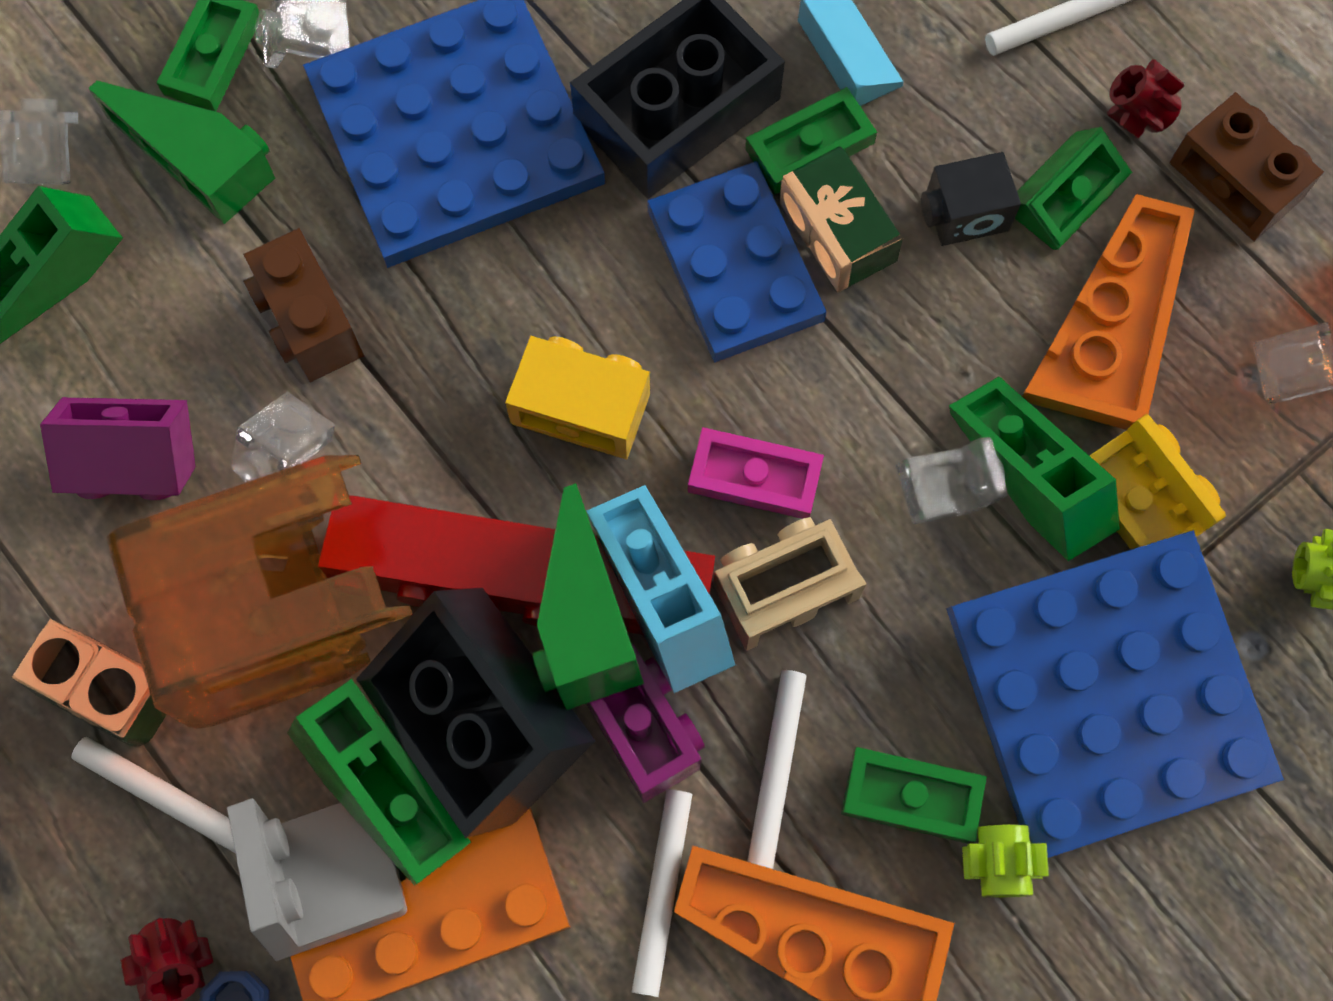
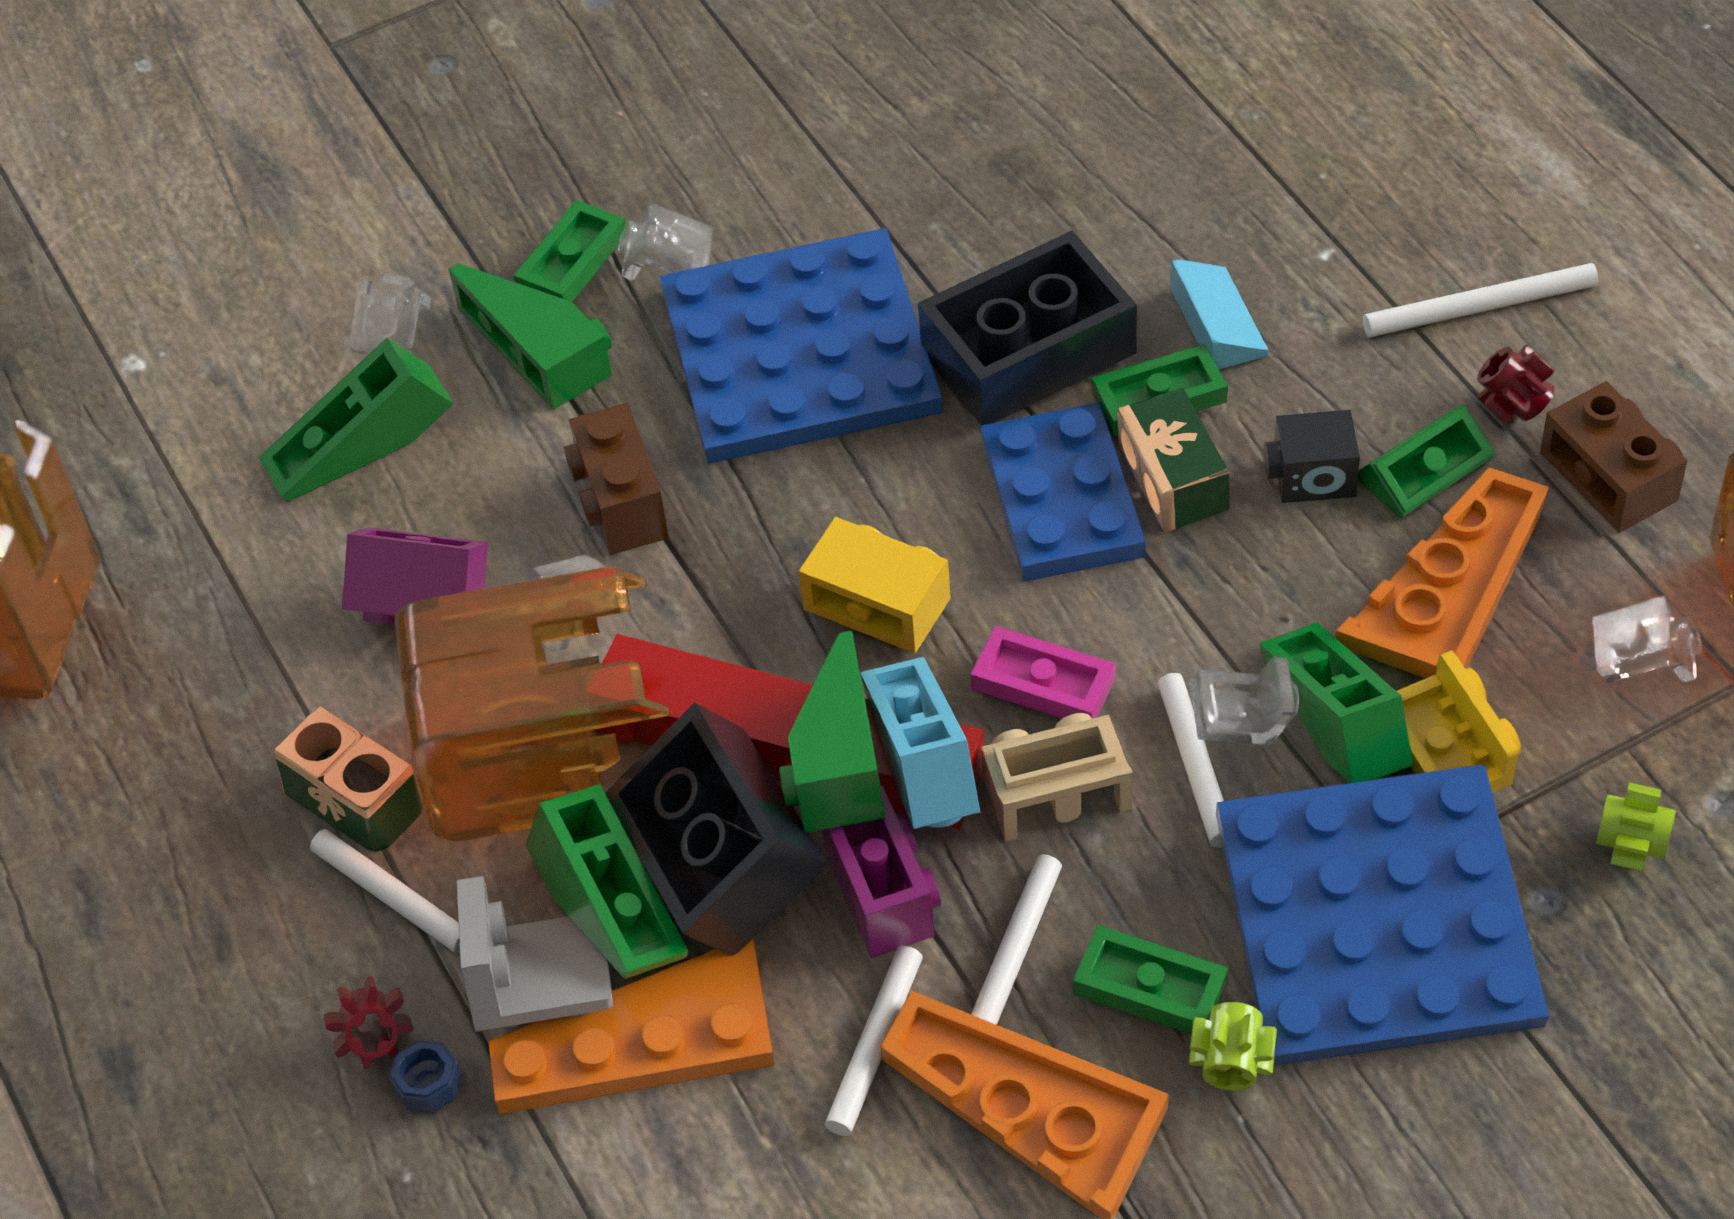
camera: 15 degrees right, 20 degrees down
(910, 539) = (1193, 752): none -> white bar

